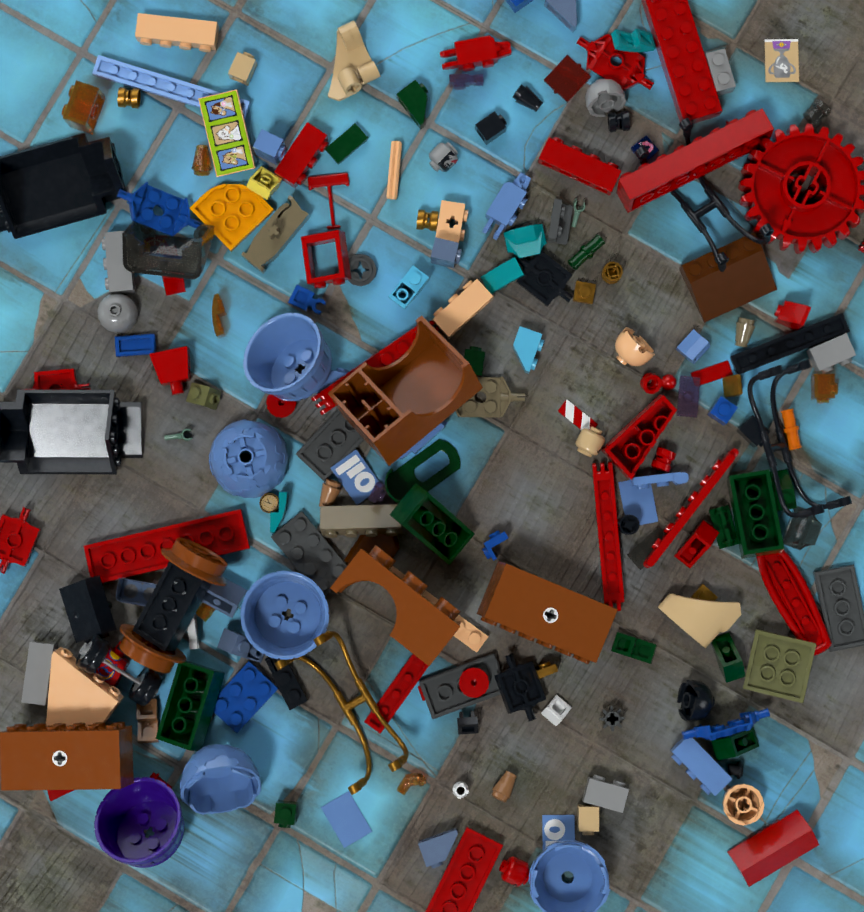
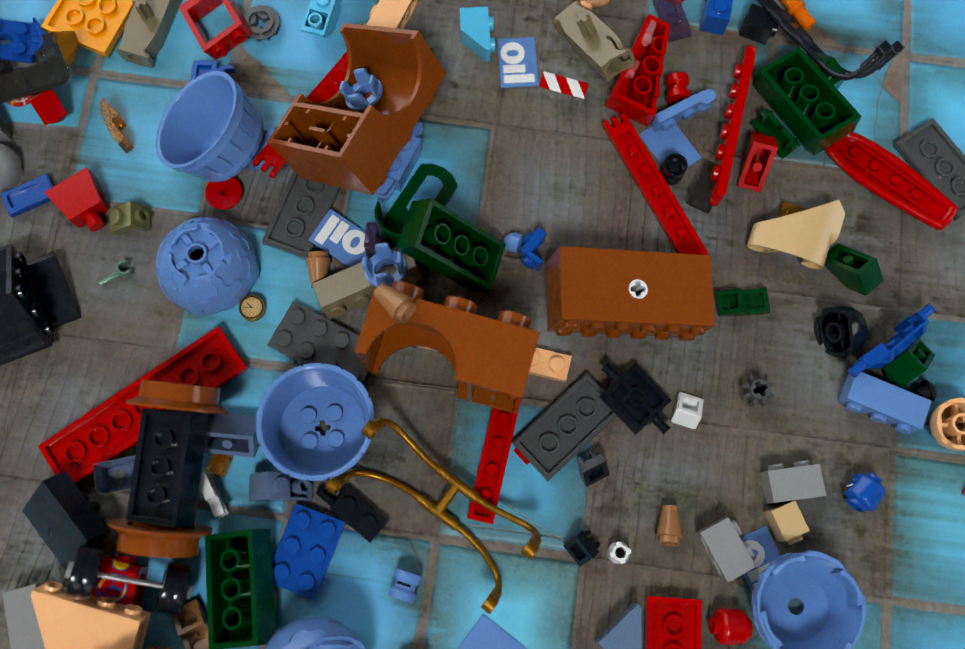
camera: 30 degrees left, 10 degrees down
(277, 517) = (267, 317): teal slope -> none
(300, 754) = (402, 591): none -> medium blue wheel
(369, 567) = (396, 303): none -> medium nougat cone
(380, 510) = (383, 257): none -> medium blue piece
(408, 366) = (365, 84): none -> medium blue piece
(411, 780) = (554, 566): clear orange arm -> none
(435, 775) = (582, 548): none -> black tile
(474, 682) = (579, 414): red piece -> none
(483, 531) = (514, 242): none -> medium blue hinge
(497, 399) = (465, 91): dark tan plate -> none
(536, 819) = (727, 549): none -> light grey brick
(546, 669) = (656, 364): pearl gold plate -> none
(549, 383) = (518, 62): none -> sticker
(590, 441) = (589, 100): tan head -> none
(611, 398) = (593, 40): none -> dark tan piece
(654, 821) = (864, 492): none -> blue head
(668, 382) = (632, 15): red plate -> none
(779, 666) = (916, 252): olive plate -> none
(801, 531) = (865, 99): clear smoke slope -> none

